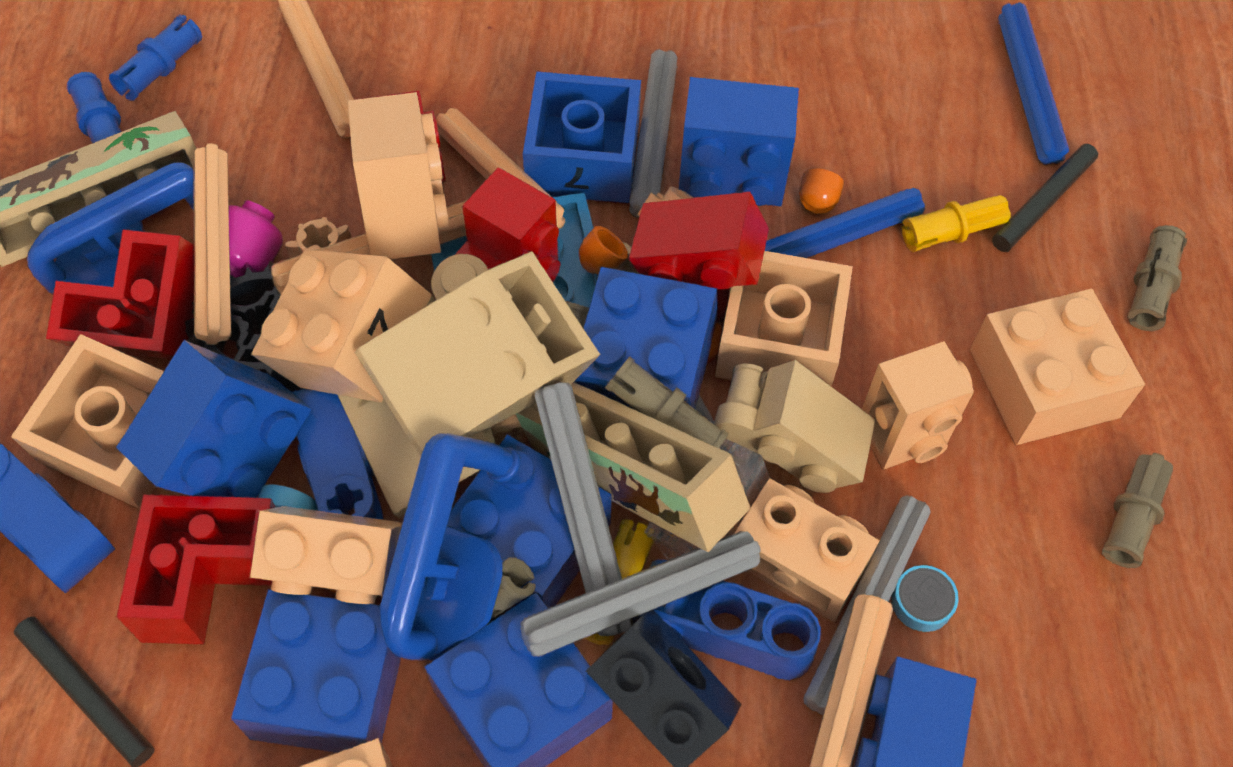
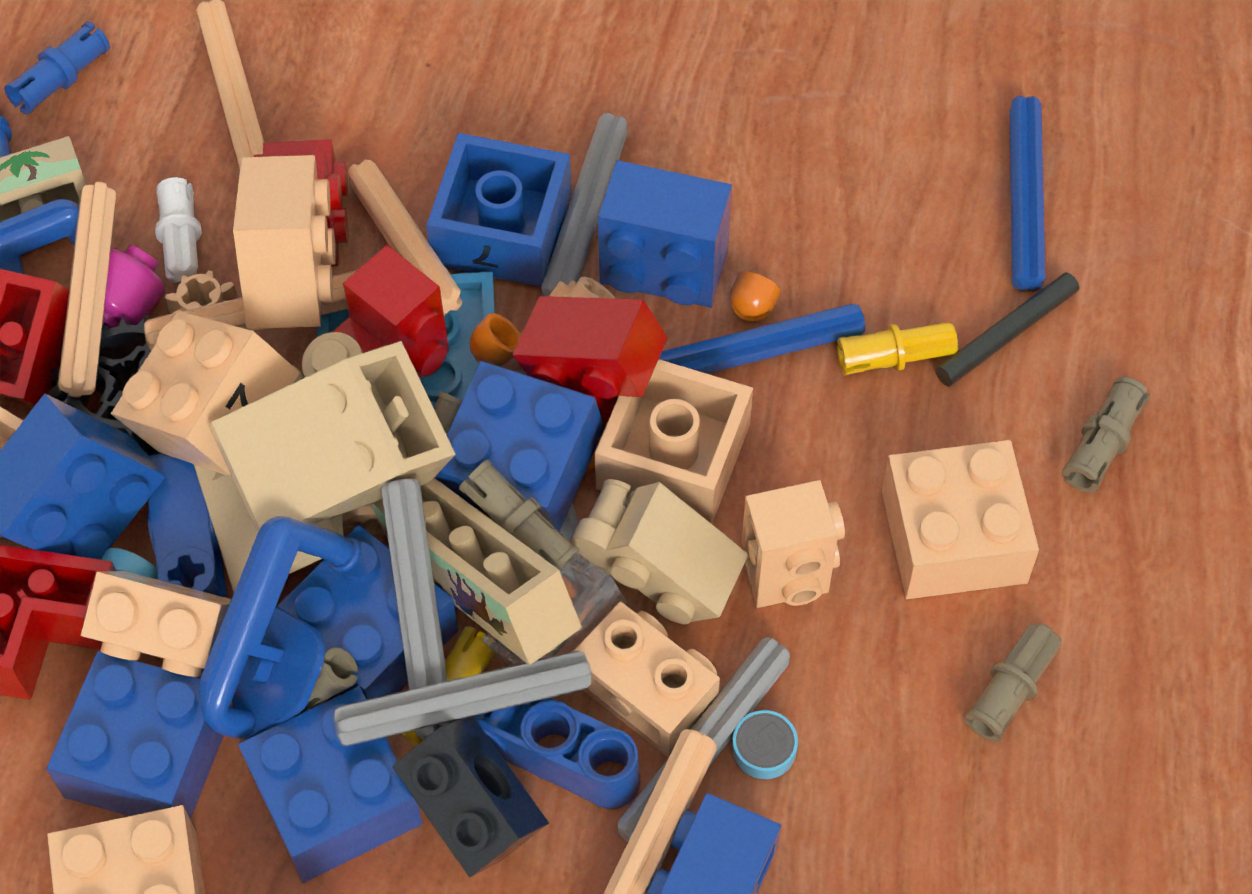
camera: 10 degrees right, 0 degrees up
(287, 184) = (177, 228): none -> white axle

